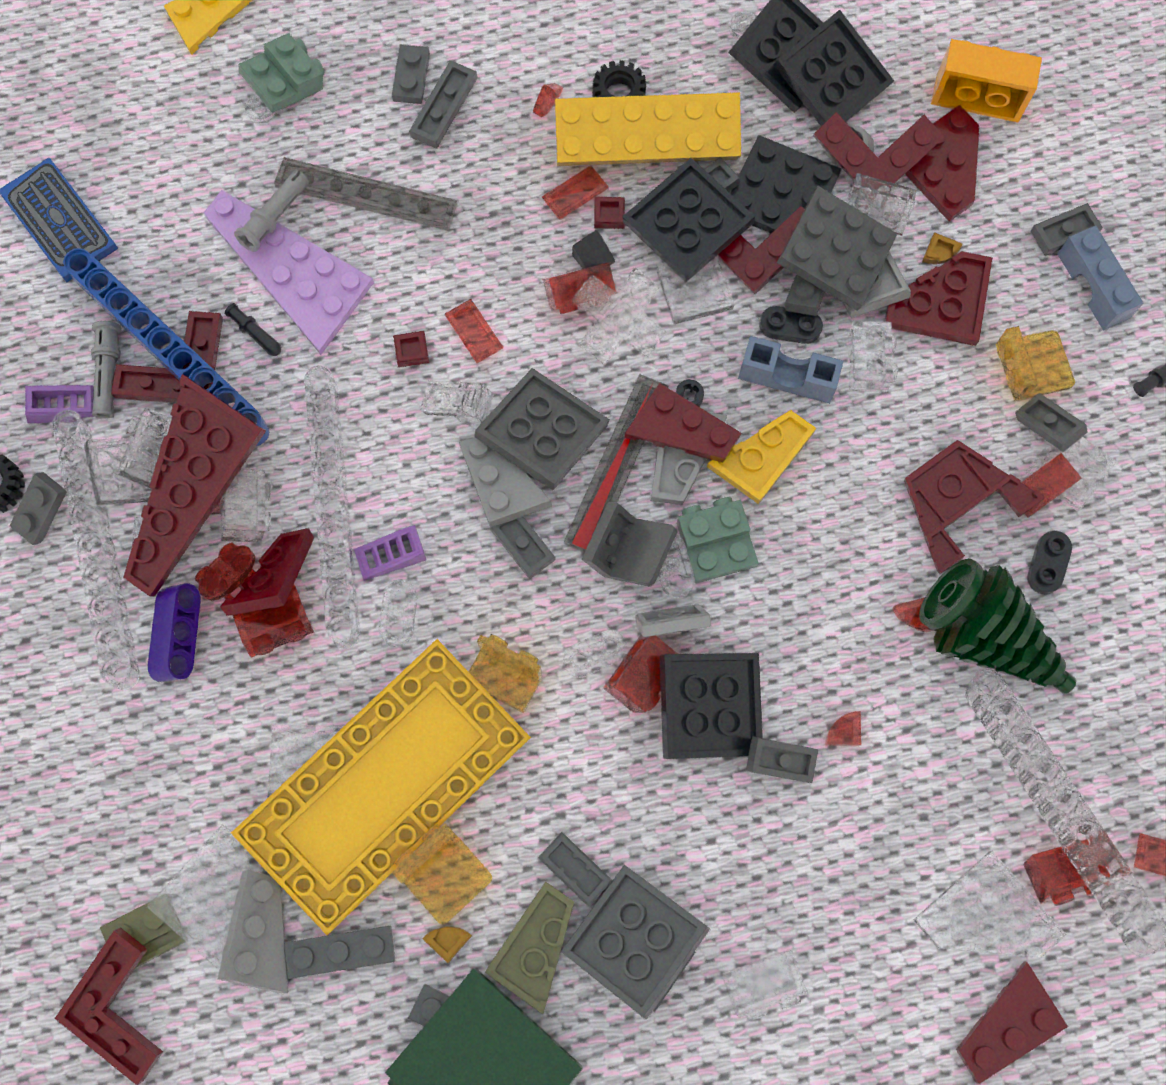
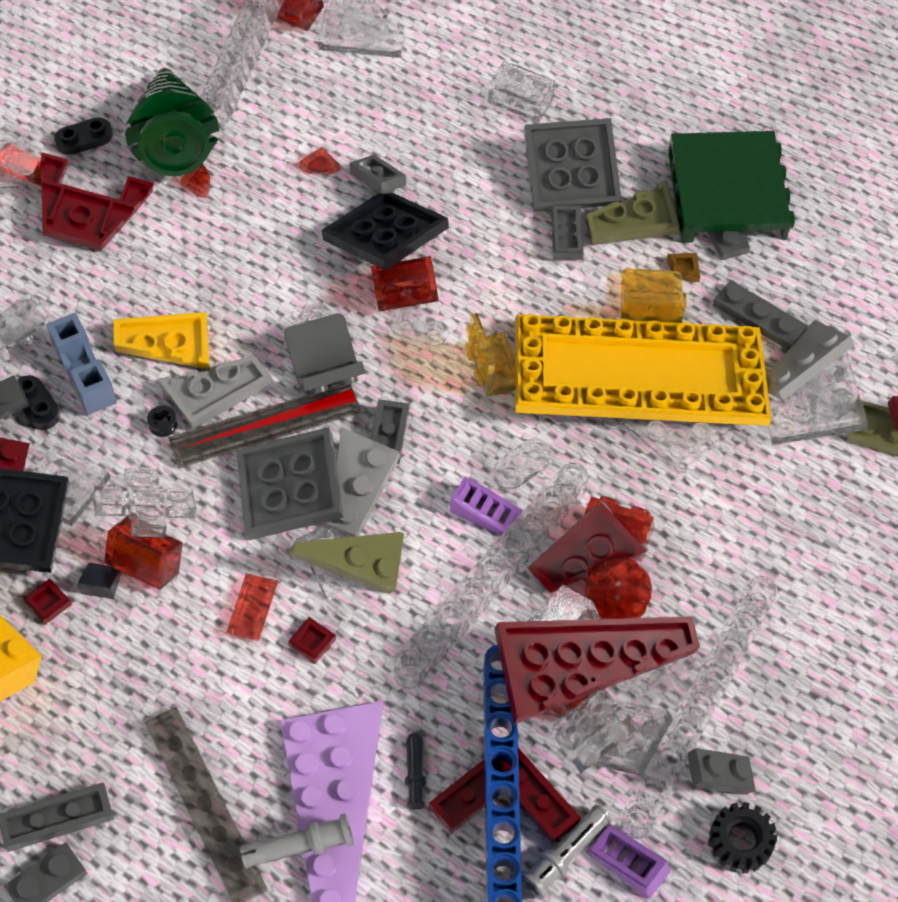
camera: 135 degrees left, 15 degrees down
(178, 612) = (696, 583): dark purple beam -> none
(427, 423) = (364, 559): none -> olive wing
(575, 192) = (54, 639): clear red tile -> none
(672, 620) = (352, 289): light grey tile -> none
(680, 424) = (197, 396): dark red wing -> none
(717, 539) = (259, 320): sand green plate -> none

